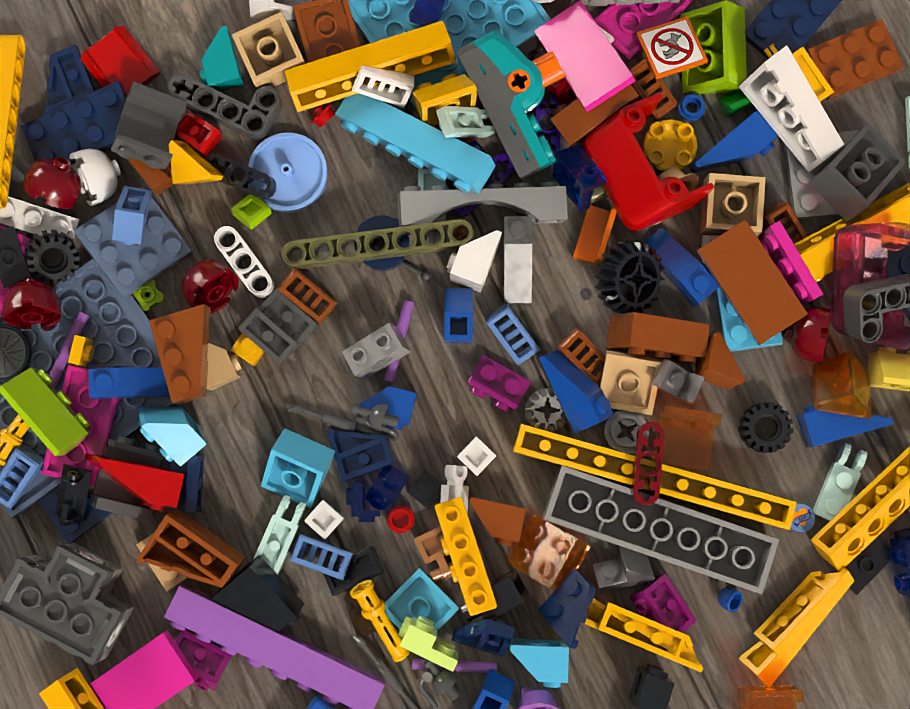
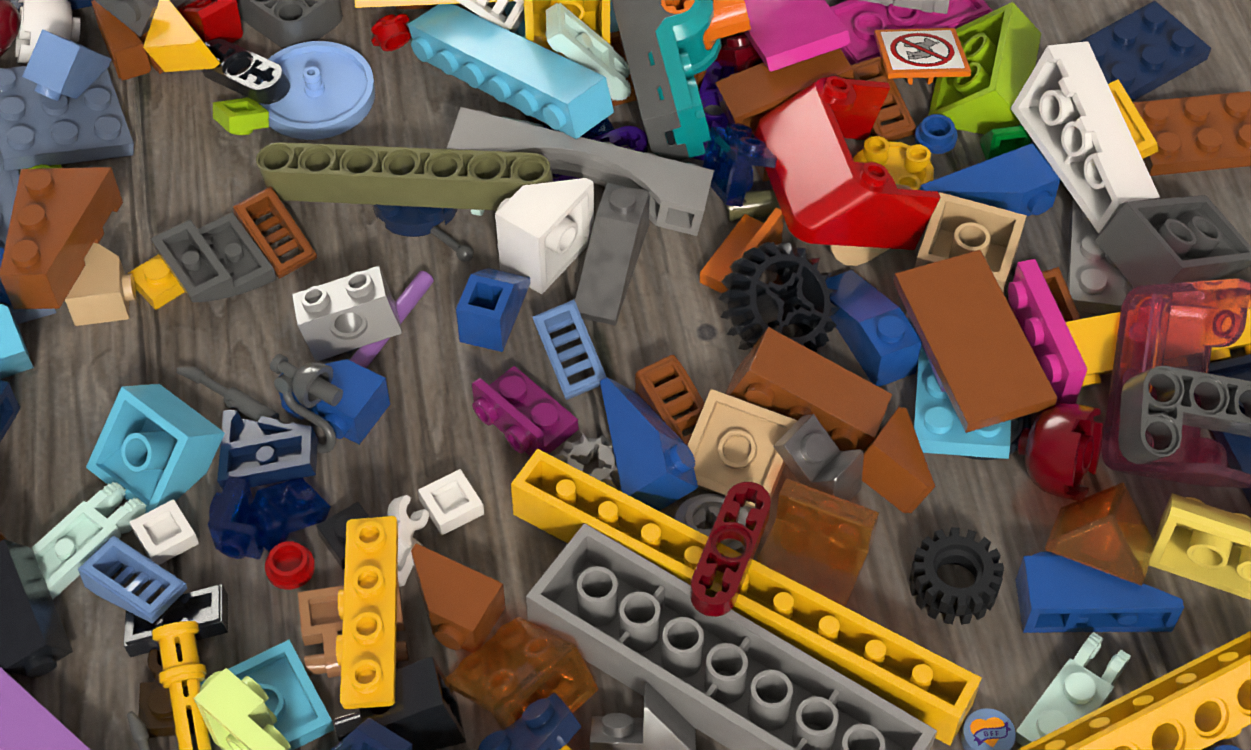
camera: 15 degrees right, 30 degrees down
(209, 284) = (145, 179): dark red cylinder -> none
(235, 253) = (200, 167): white beam -> none

